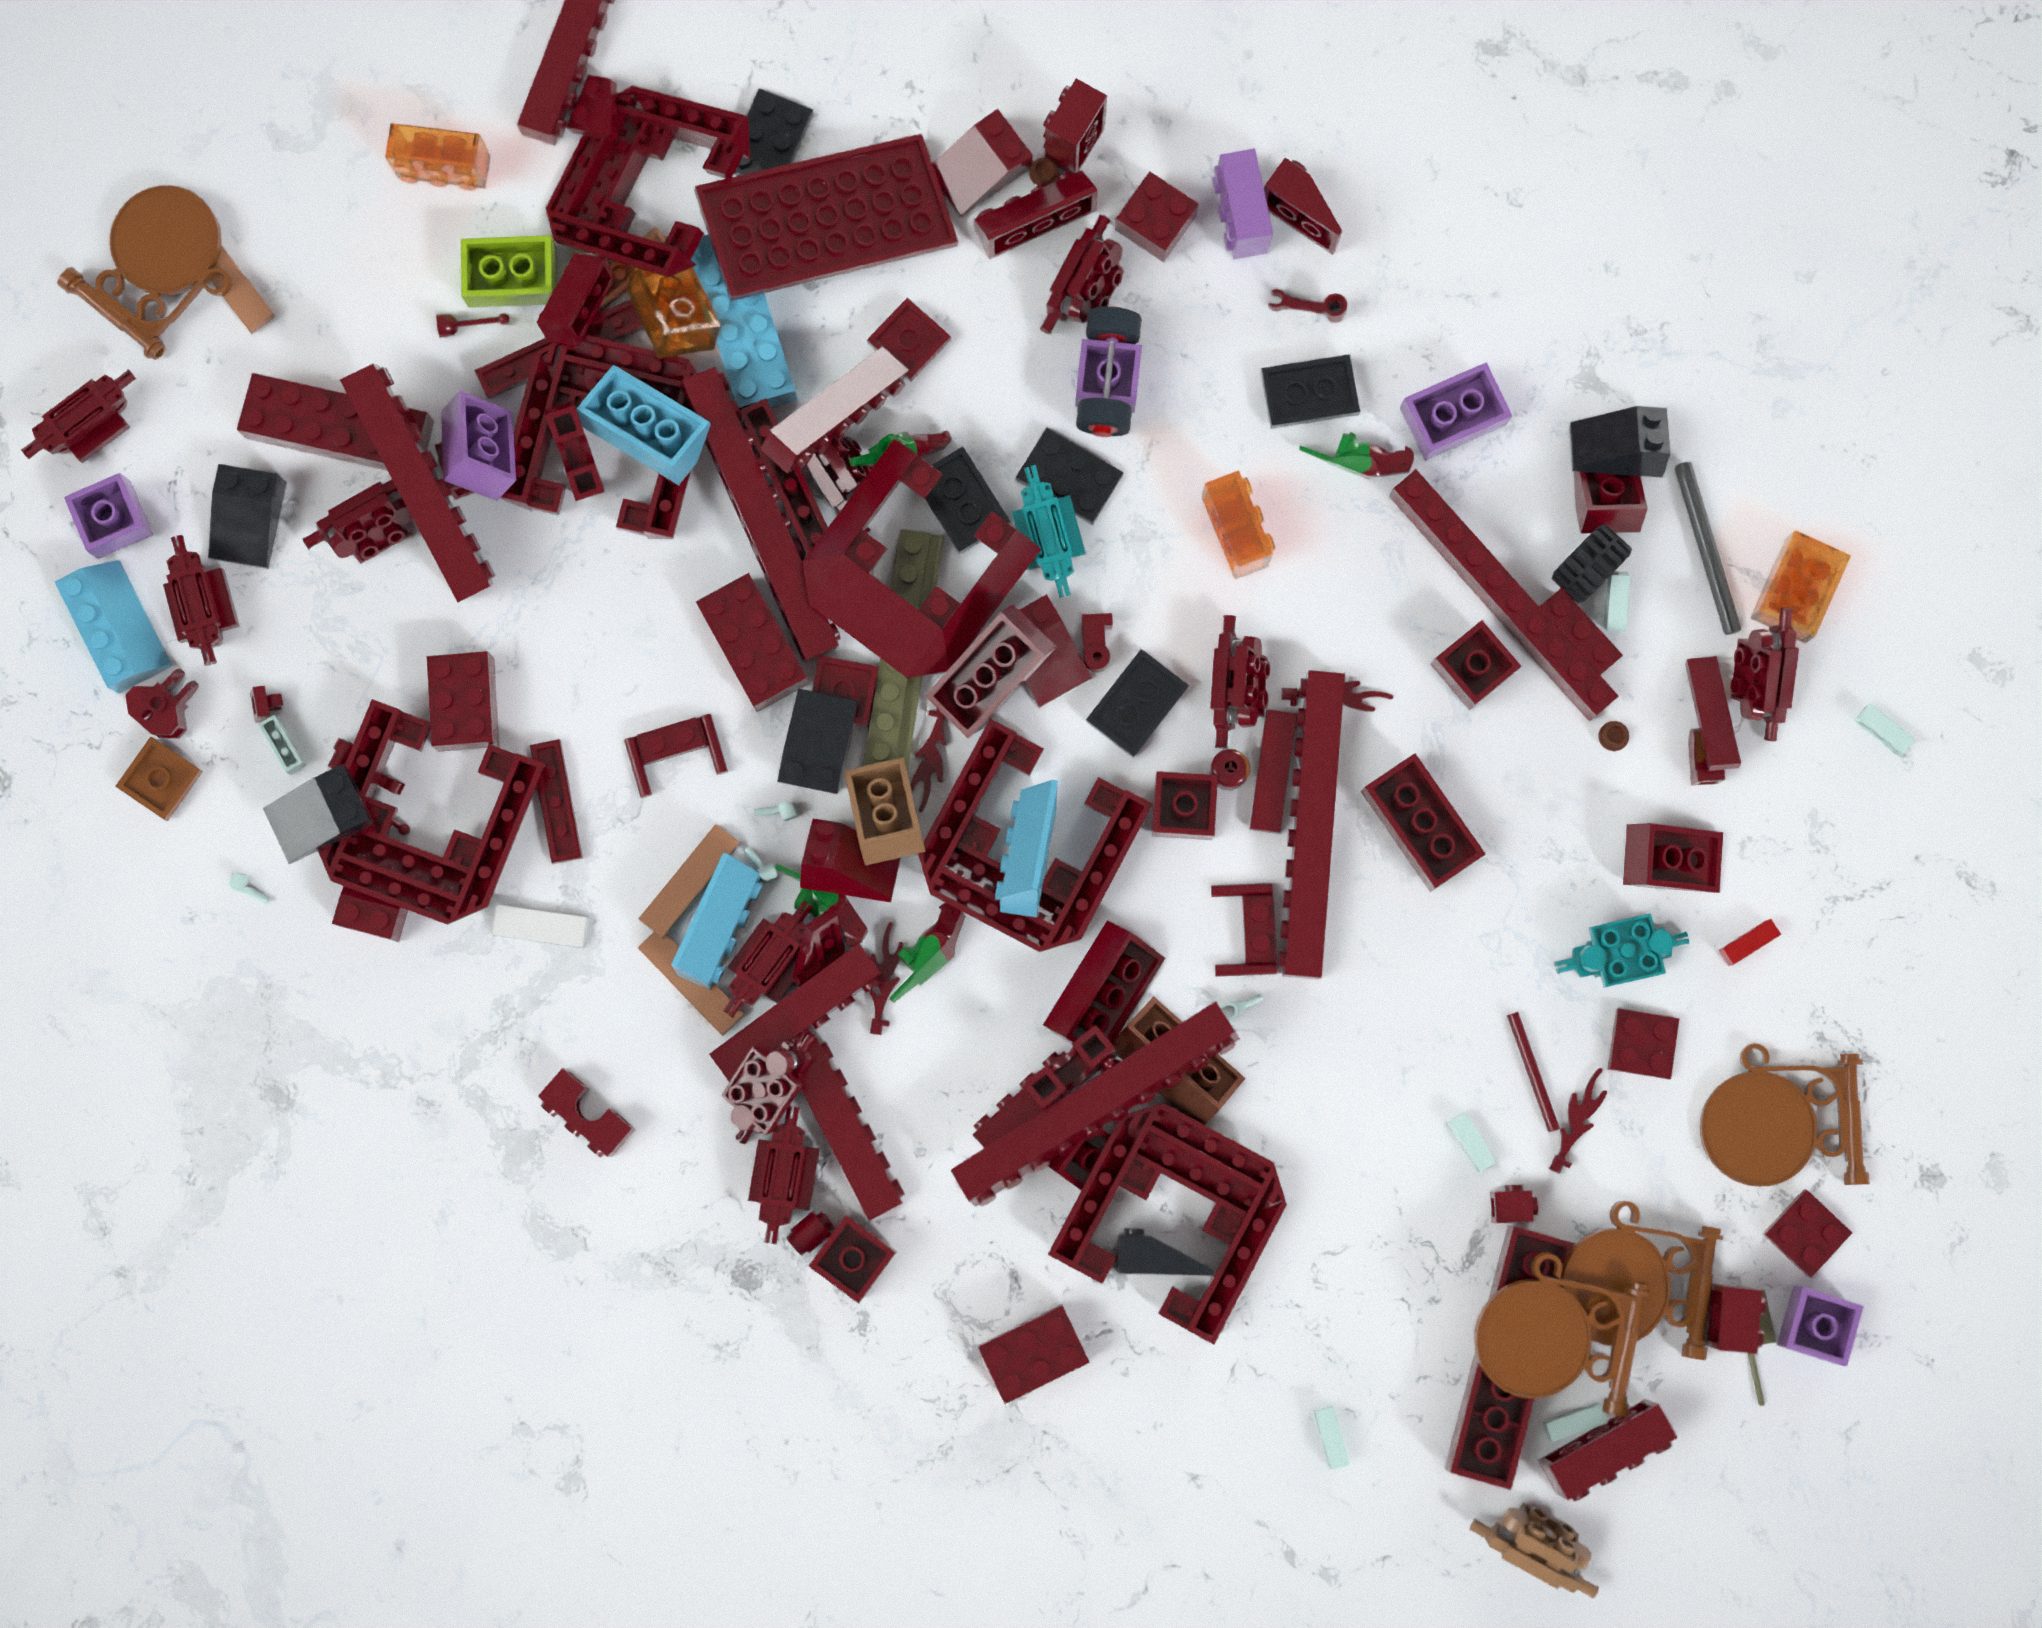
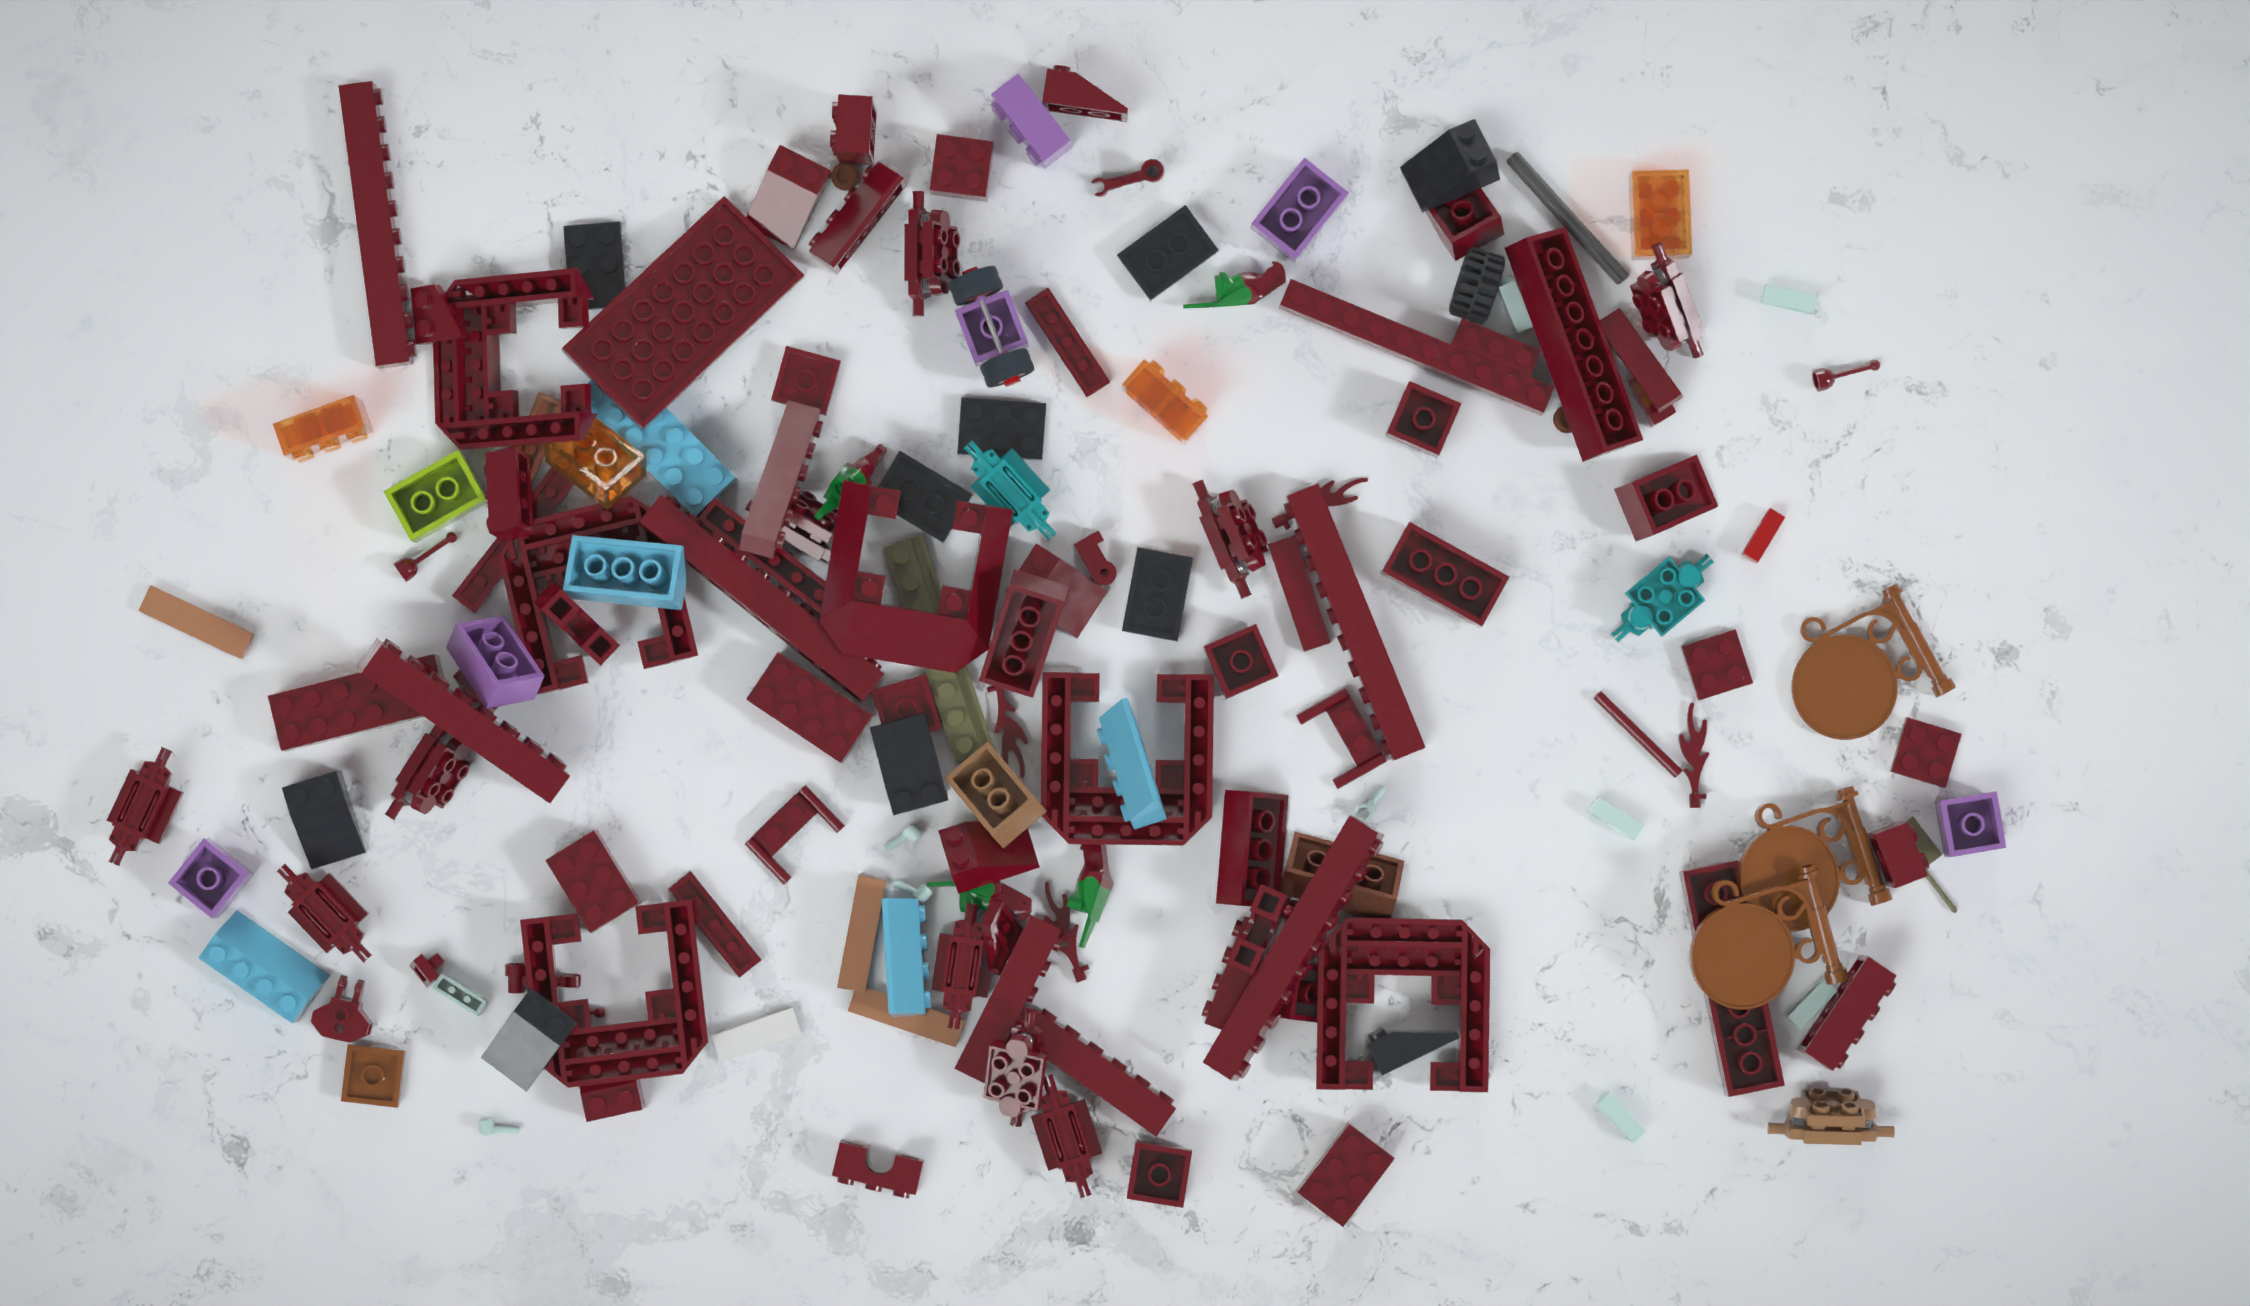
camera: 30 degrees left, 5 degrees up
(164, 246) = (127, 624): dark orange piece -> none
(810, 1232) = (1112, 1170): dark red brick -> none
(1172, 427) = (1067, 342): none -> dark red tile
(1240, 773) = (1257, 601): dark red head -> none
(1513, 1205) = (1675, 853): dark red brick -> none
(1657, 665) = (1573, 343): none -> dark red brick
(1883, 822) = (1825, 378): none -> dark red hinge

